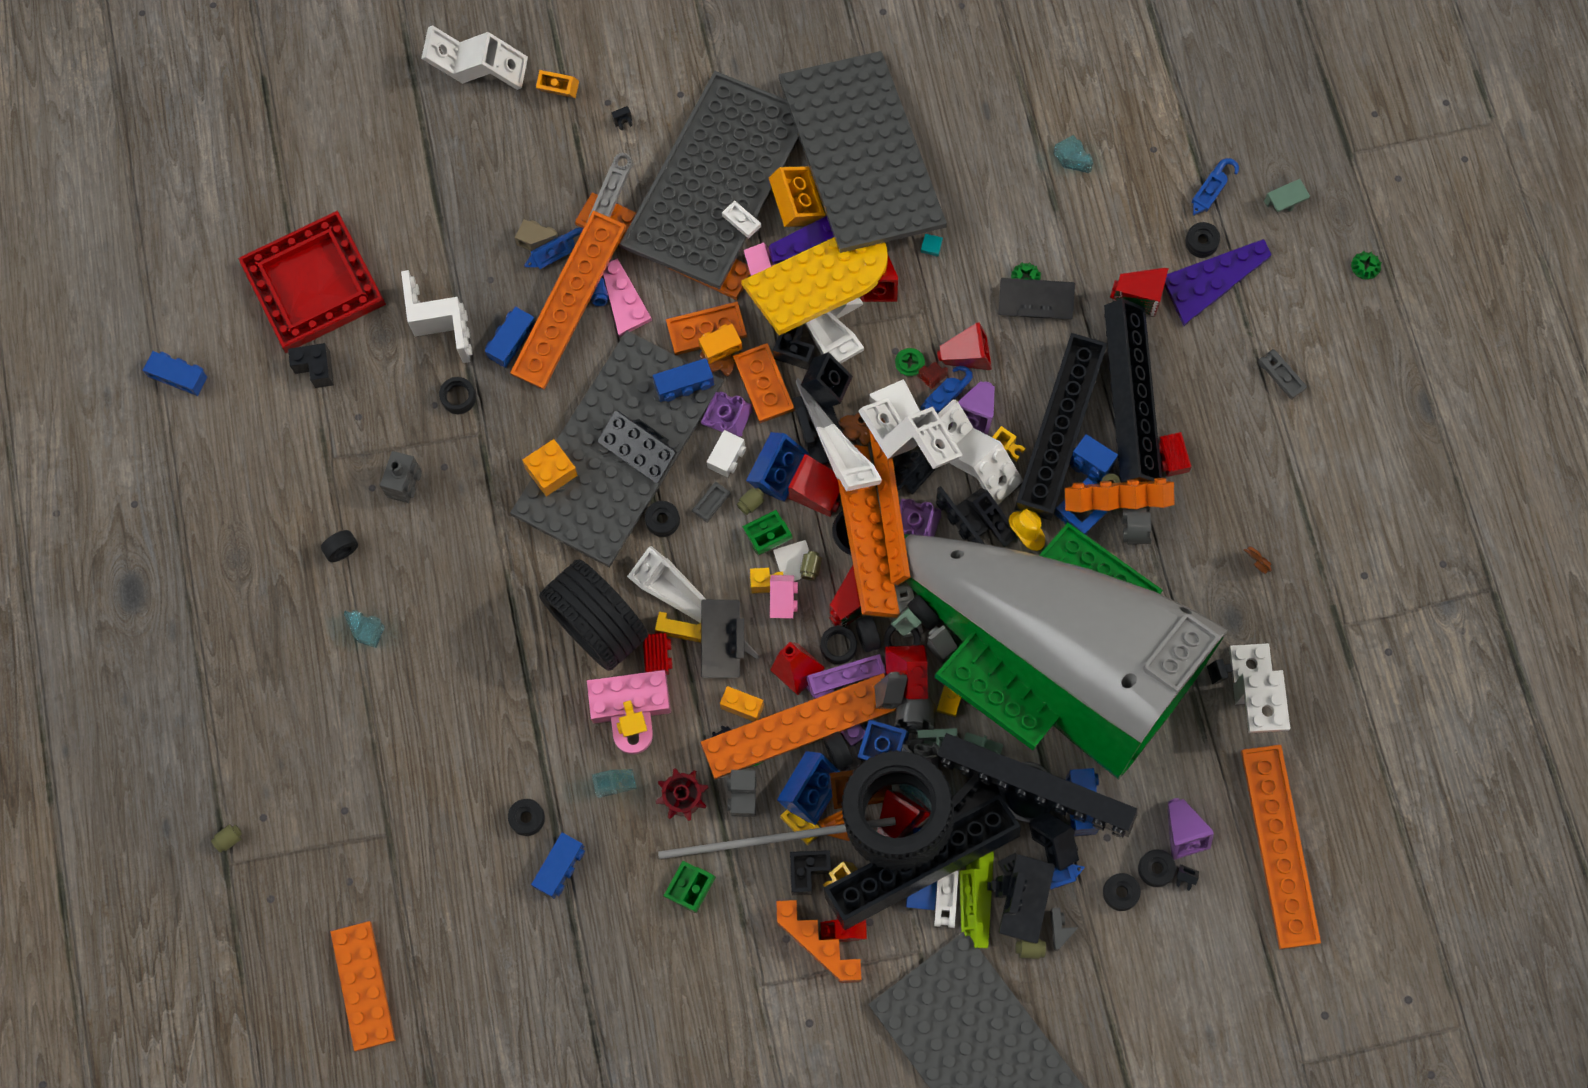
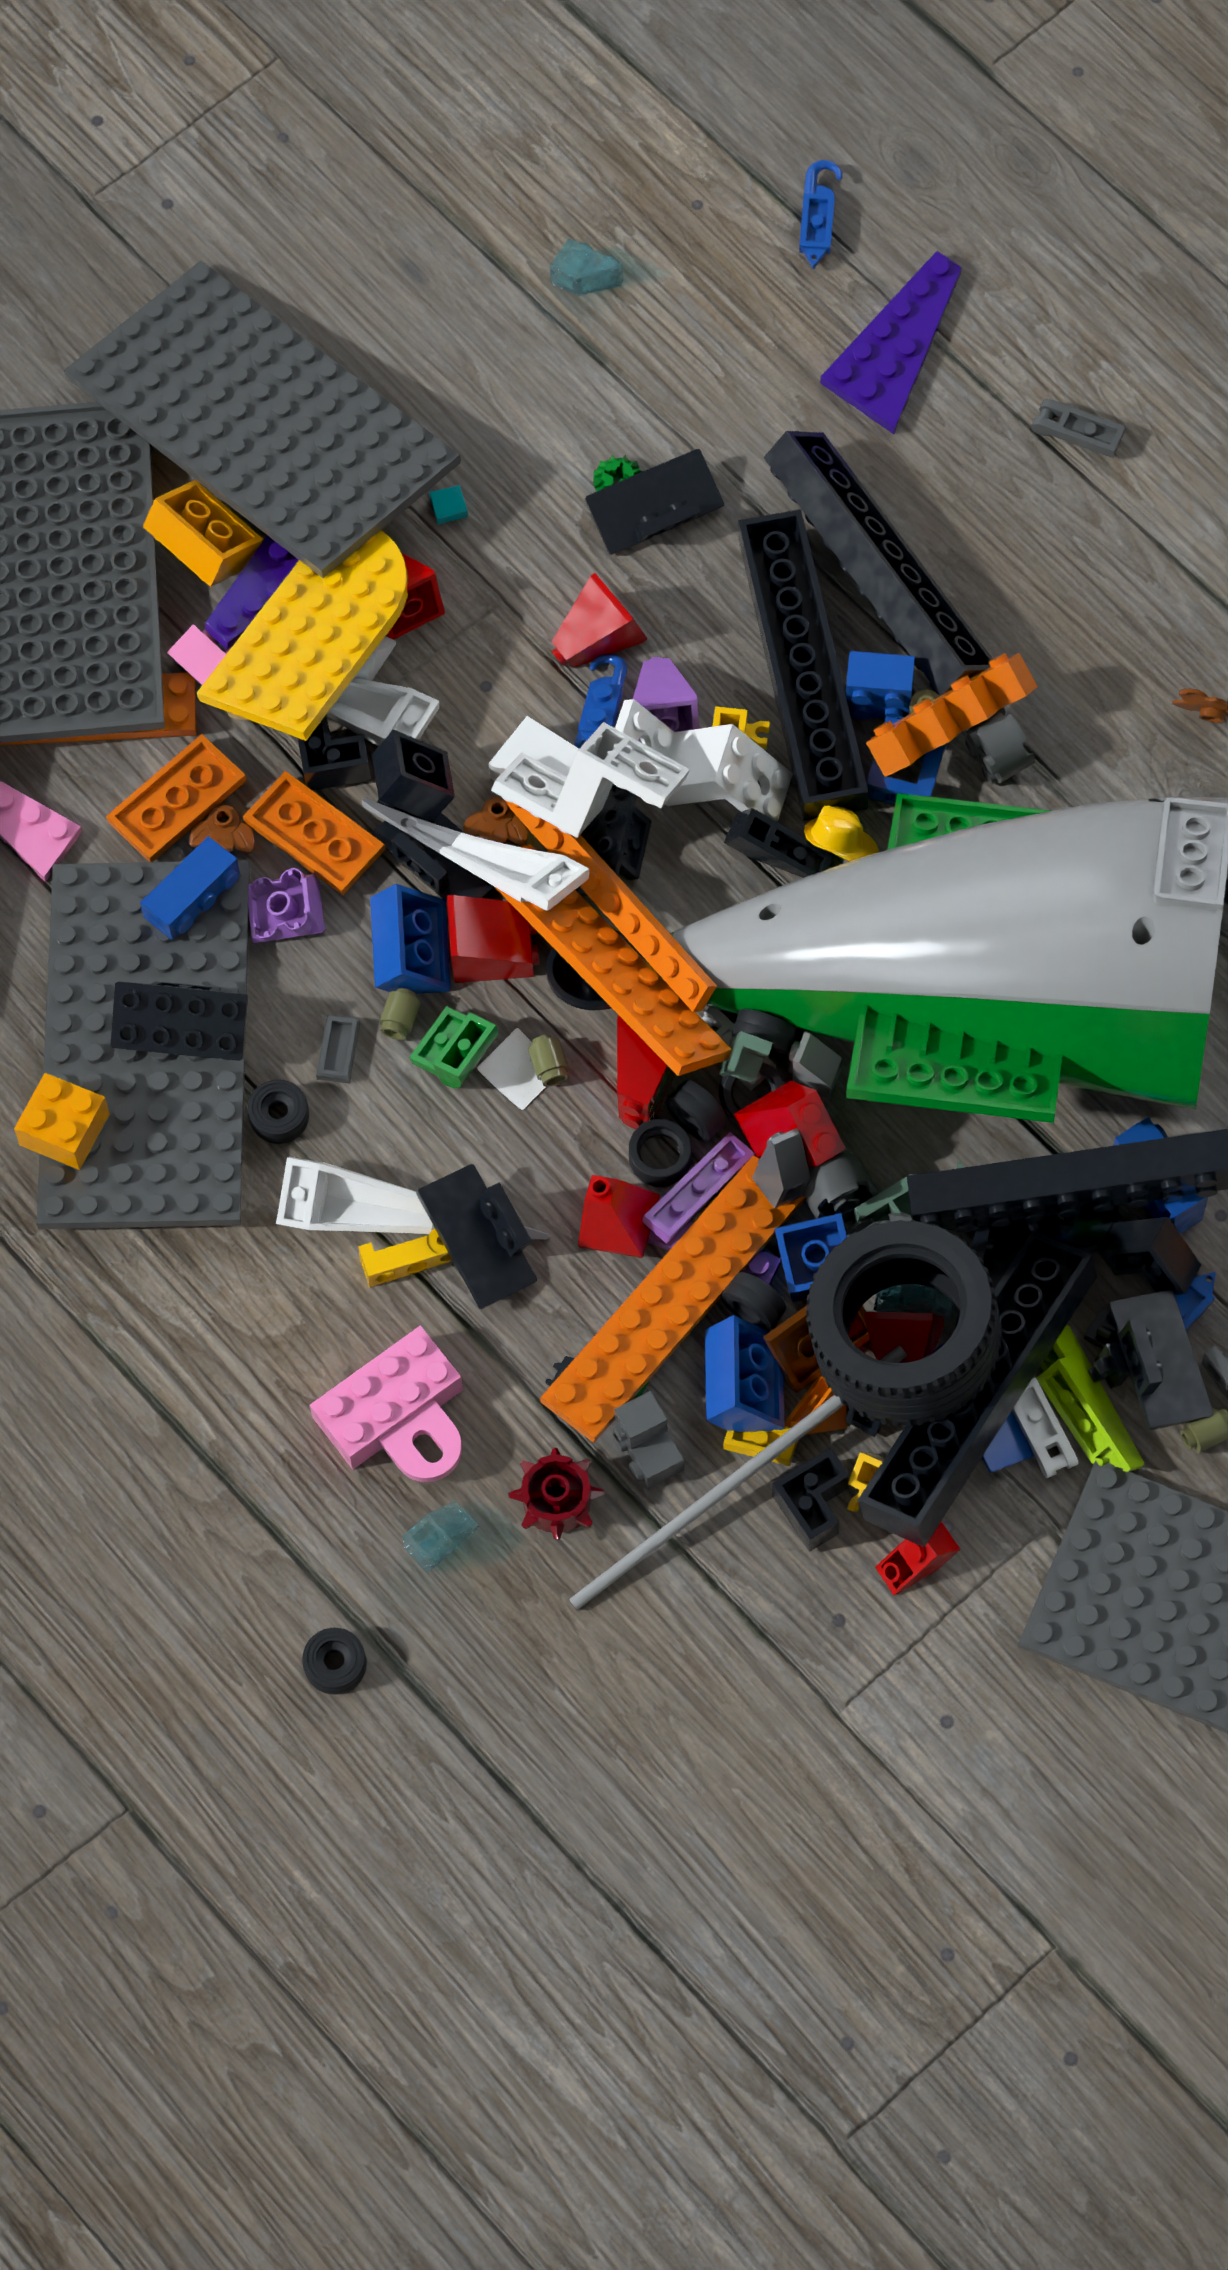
camera: 30 degrees left, 5 degrees down
(362, 986) = (229, 2053): orange plate -> none
(558, 865) = (429, 1703): blue brick -> none
(594, 614) = (268, 1293): black tyre -> none
(632, 723) = (419, 1426): yellow brick -> none
(656, 653) = (388, 1310): red brick -> none
(689, 886) = (649, 1622): green brick -> none
(720, 343) = (214, 805): light orange brick -> none
(726, 454) = (319, 965): white piece -> none
(741, 219) = (138, 607): white plate -> none
(741, 704) = (566, 1315): light orange brick -> none
(760, 579) = (488, 1119): yellow brick -> none
(782, 596) = (535, 1124): bright pink brick -> none
(824, 951) = (908, 1603): orange brick -> none
(903, 356) = (524, 678): green gear -> none
(919, 518) = (674, 902): medium lavender slope -> none
(933, 374) = (564, 690): clear red panel -> none
(948, 702) = (872, 1134): yellow plate -> none
(962, 516) = (728, 868): black bracket -> none
(1141, 288) = (803, 404): red slope -> none
(1174, 454) = (992, 620): red brick -> none
(1202, 229) = (848, 279): black tyre -> none
(1287, 196) = (935, 172): sand green panel -> none
(1358, 266) = (1097, 223): green gear -> none

